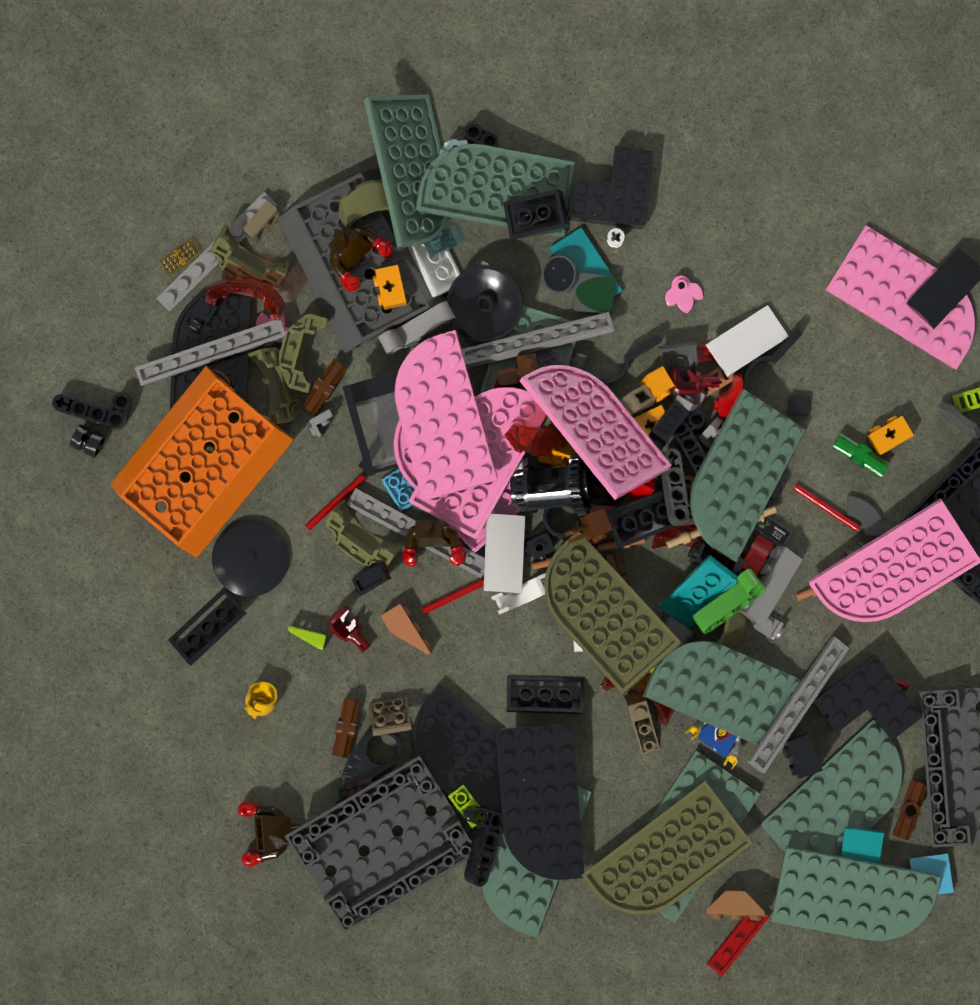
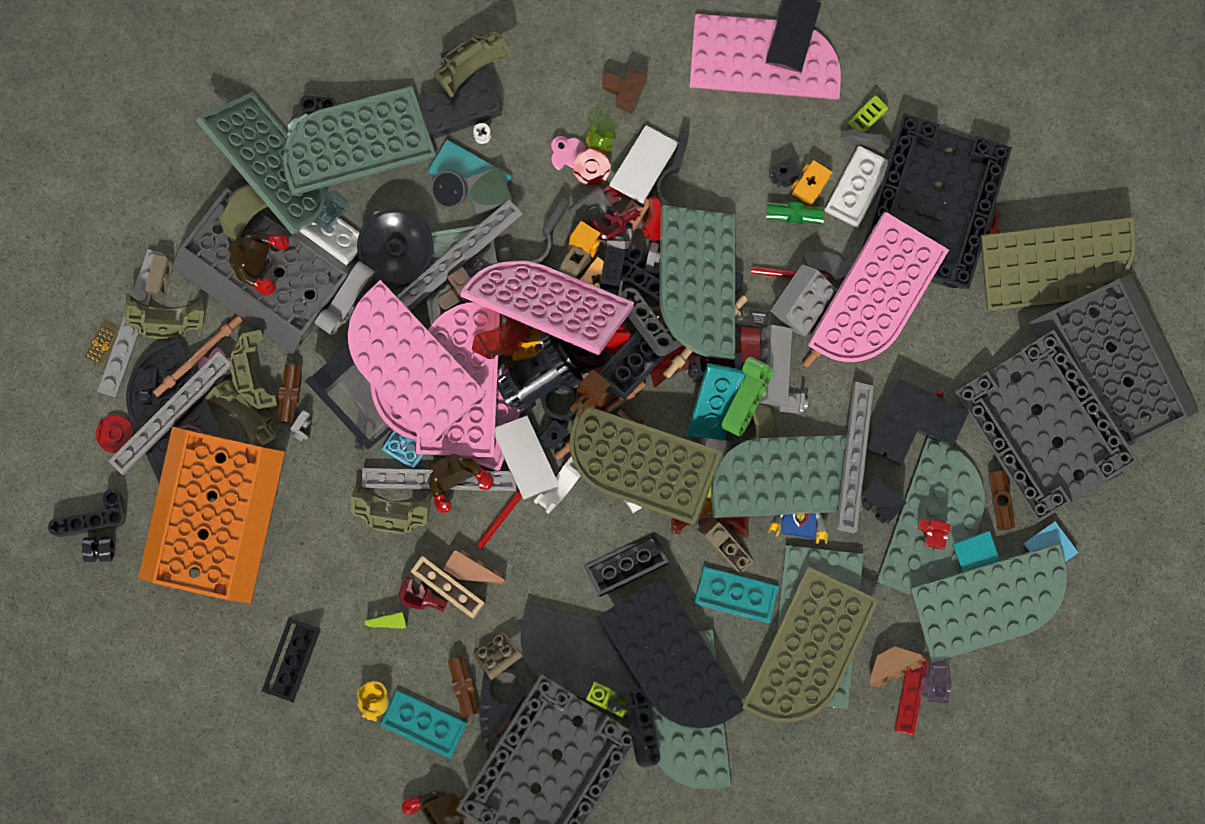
camera: 30 degrees left, 5 degrees down
(158, 346) = (114, 439): none -> red tile
(225, 322) = (225, 330): none -> nougat bar
(247, 287) = (176, 339): clear red windscreen -> none
(250, 558) = (299, 579): black dish -> none
(295, 742) = (423, 724): none -> teal tile
(331, 505) = (347, 499): red bar -> none
(371, 578) = (418, 541): black tile -> none
(376, 634) = (448, 588): none -> tan brick
(391, 276) = (312, 280): light orange brick -> none
(536, 214) = (401, 146): black slope -> none
(629, 771) = (736, 594): none -> teal tile
(638, 164) = (469, 58): none -> olive windscreen
(699, 319) = (591, 166): none -> tile
(718, 299) = (600, 139): none -> clear neon green helmet
(765, 944) = (937, 684): none -> clear purple brick
(767, 263) = (627, 89): none -> reddish brown brick
(799, 405) = (719, 197): black tile -> none
(826, 539) = (803, 300): none -> light grey piece
(834, 809) = (934, 533): none -> red brick
(869, 413) = (784, 173): none -> black brick
(930, 459) = (857, 187): none -> white tile

